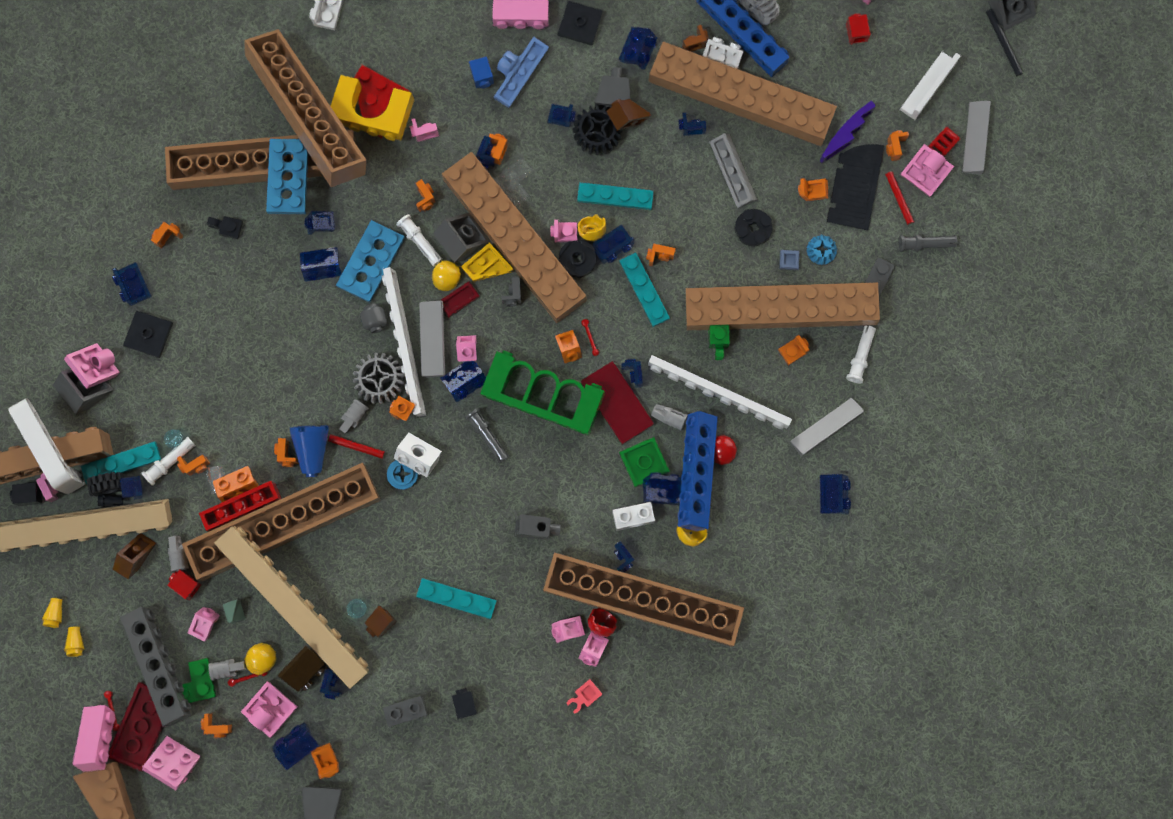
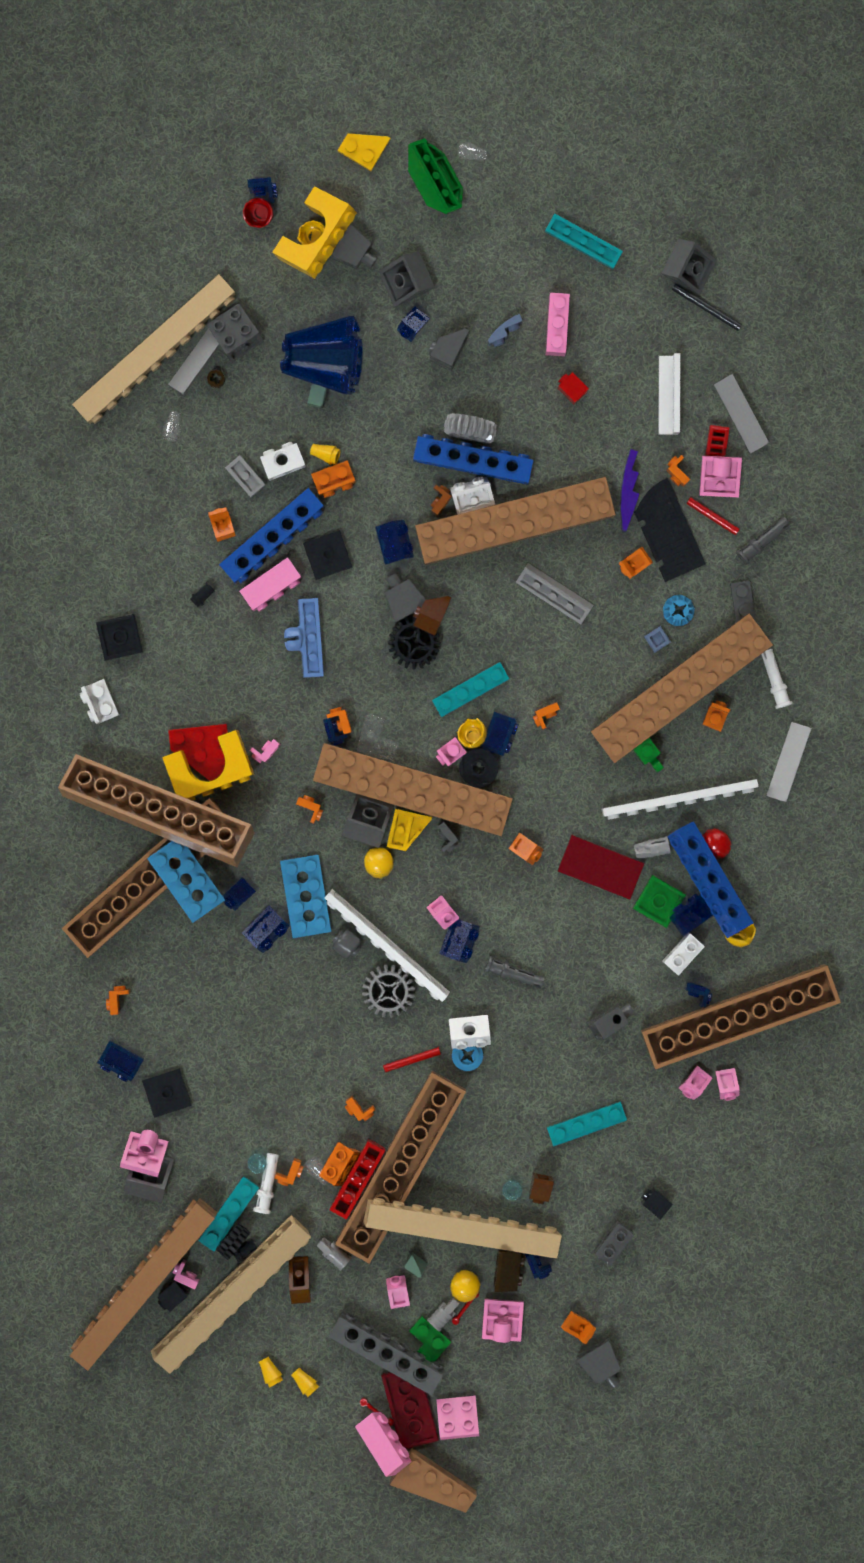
camera: 40 degrees left, 10 degrees up
(44, 449) = (164, 1251): white beam -> none
(131, 487) = (257, 1228): clear blue bracket -> none
(184, 584) = (357, 1273): red brick -> none
(218, 730) = (475, 1365): orange bracket -> none
(228, 226) = (163, 954): black plate -> none
(294, 746) = (545, 1333): clear blue bracket -> none
(310, 447) = (376, 1088): blue cone -> none
(353, 415) = (390, 1038): light grey hinge -> none
(401, 408) = (428, 1003): orange bracket -> none
(414, 234) = (325, 846): white pin -> none
(432, 339) = (408, 925): light grey slope -> none
(459, 299) = (404, 874): dark red tile -> none
(481, 72) = (278, 664): blue brick -> none
(499, 376) = (489, 923): green fence -> none
(561, 115) = (372, 650): clear blue bracket -> none
(585, 323) = (525, 818): red hinge -> none
(586, 694) = (749, 1124): coral plate -> none
(599, 615) = (727, 1062): red hair -> none
(636, 374) = (600, 833): clear blue bracket -> none
(644, 289) = (554, 753): teal plate -> none
(694, 127) = (494, 580): clear blue bracket -> none
(744, 232) = (613, 623): black plate -> none
(834, 494) = (834, 815): clear blue bracket -> none

